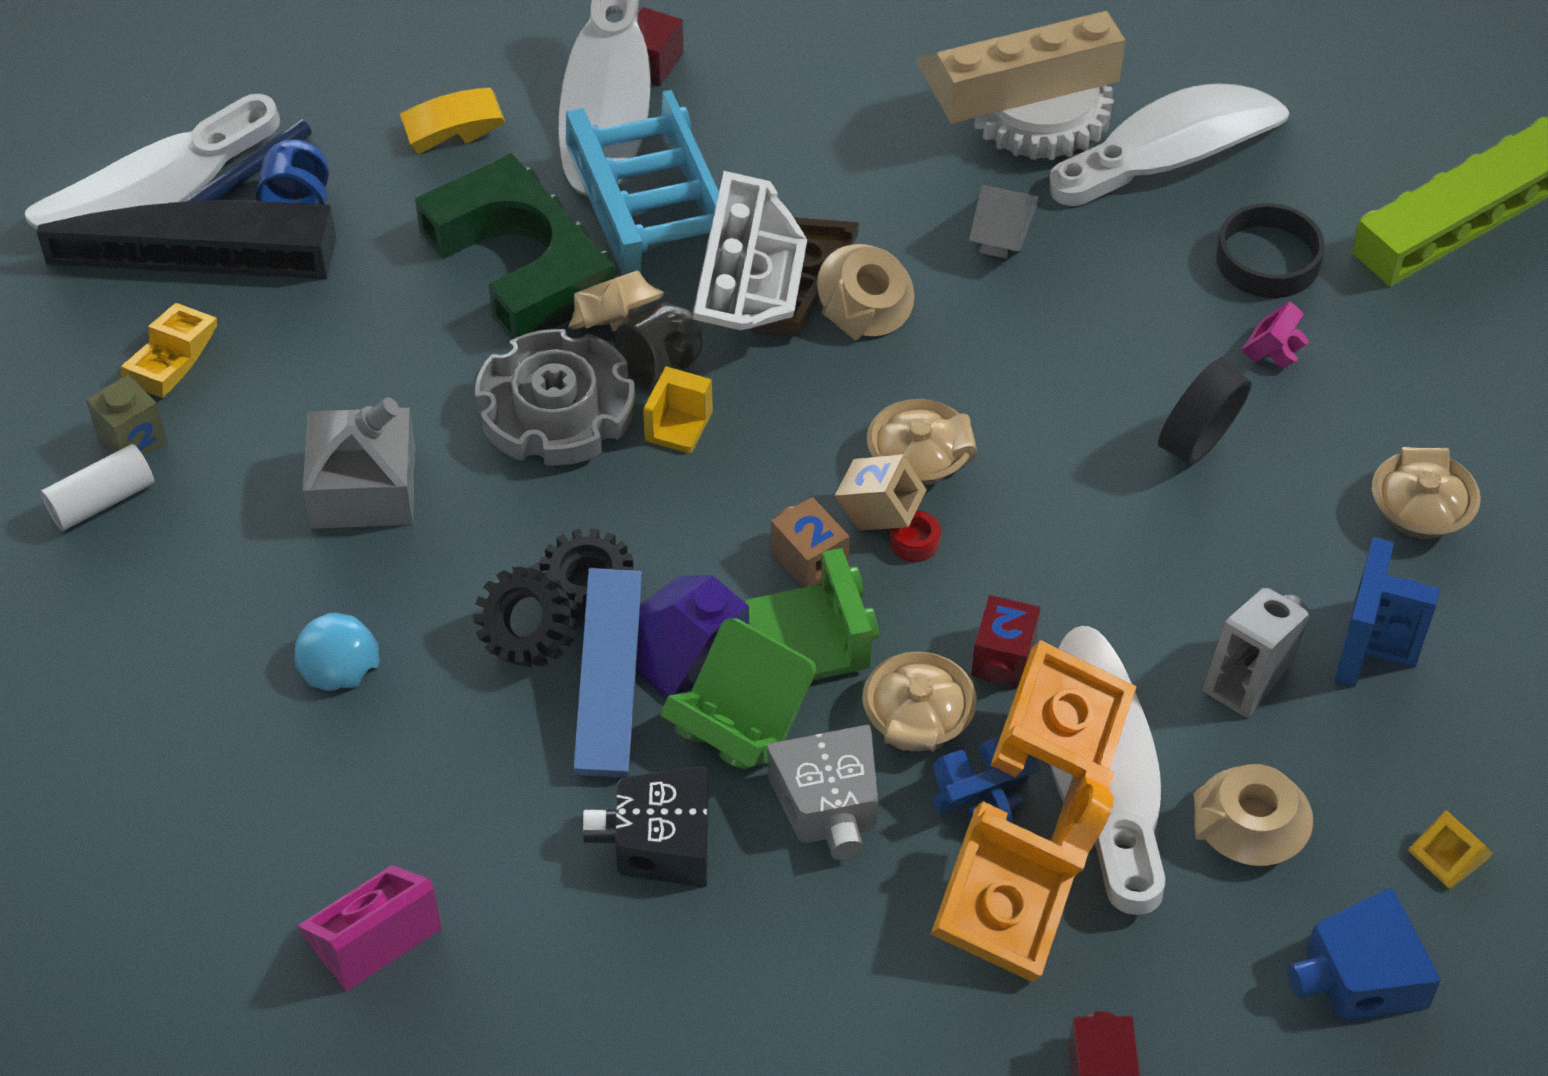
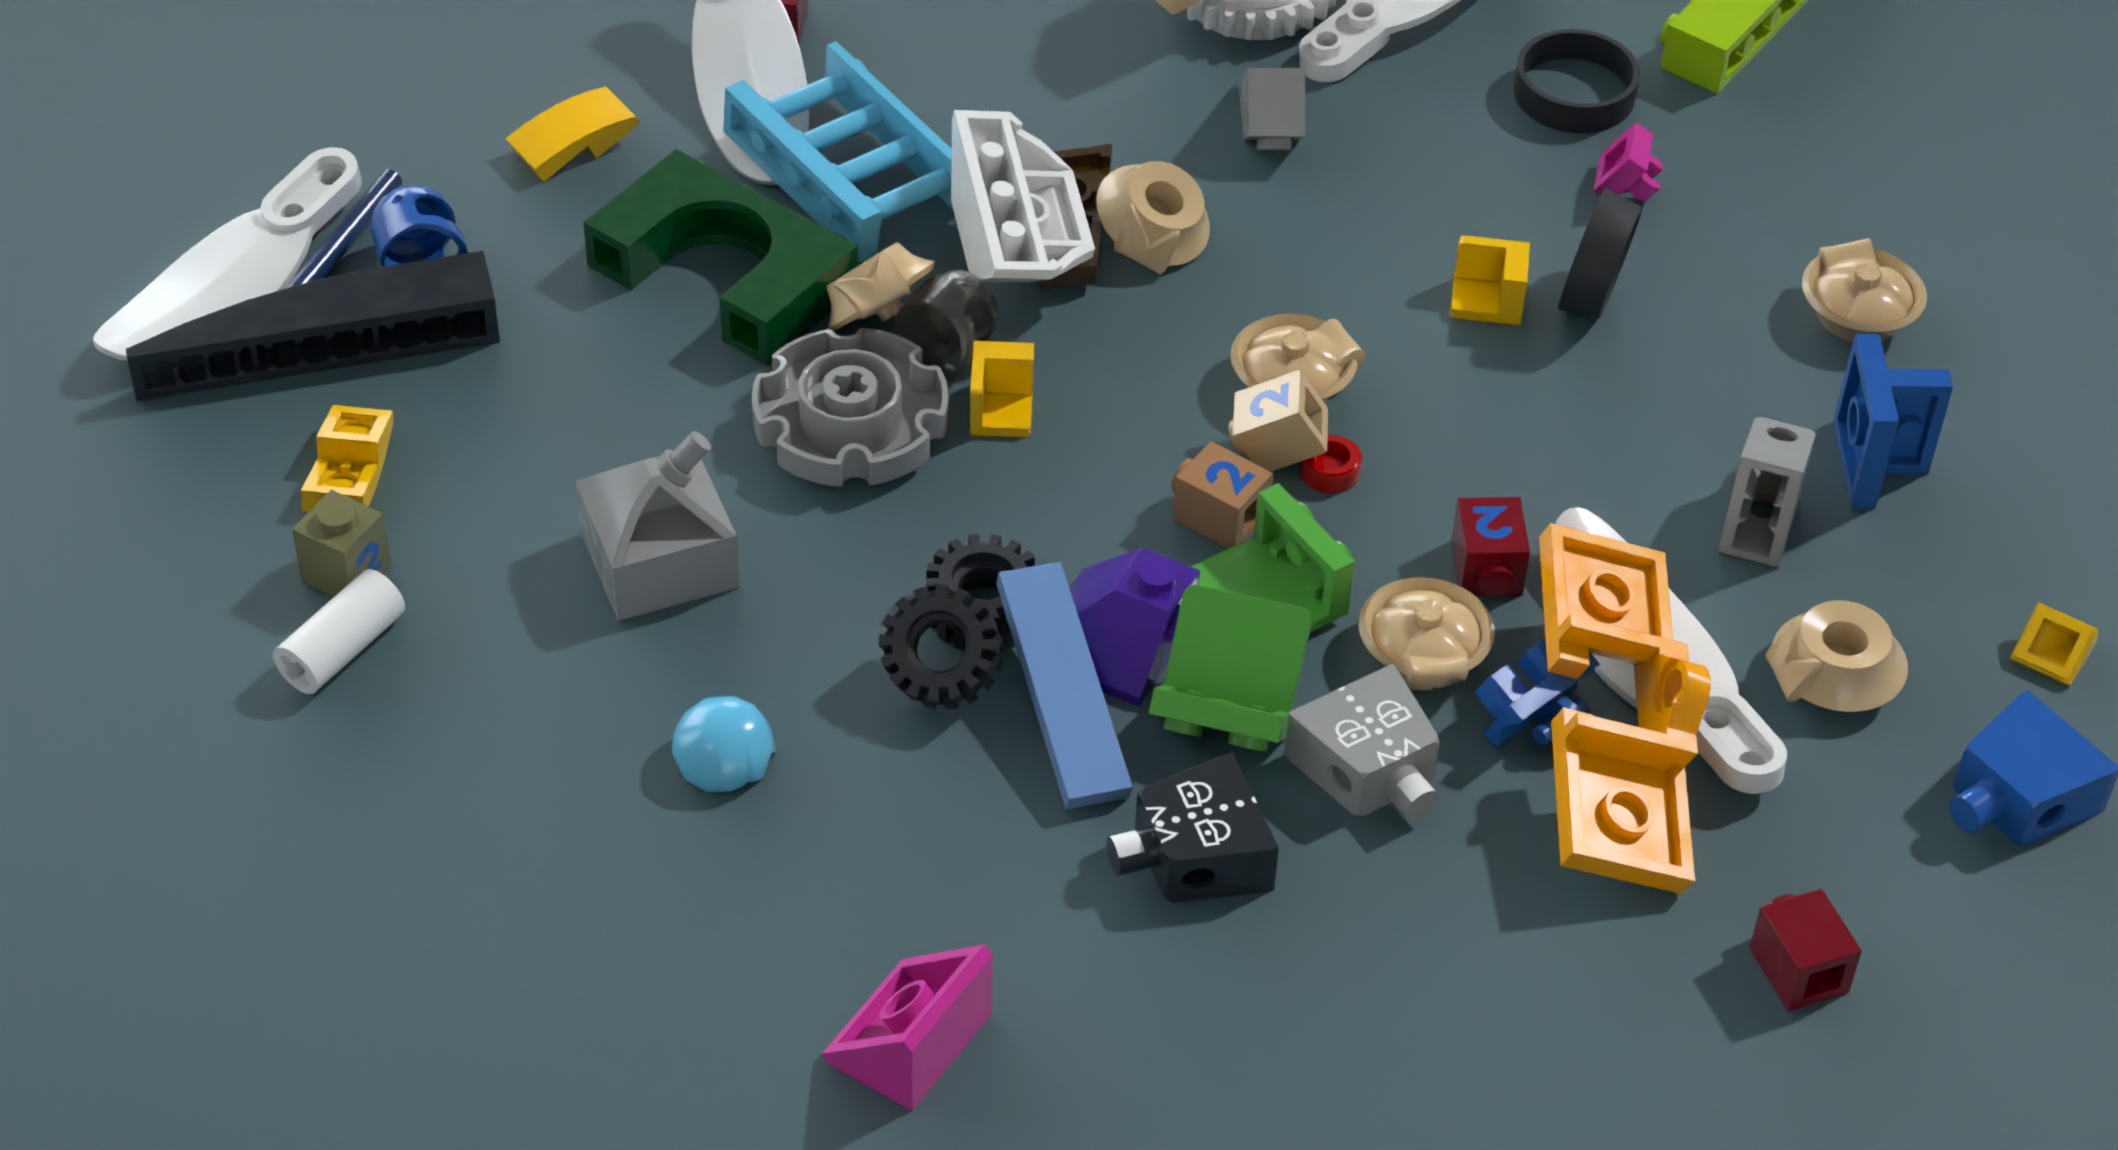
camera: 20 degrees left, 5 degrees down
(1115, 410) = (1490, 280): none -> yellow panel

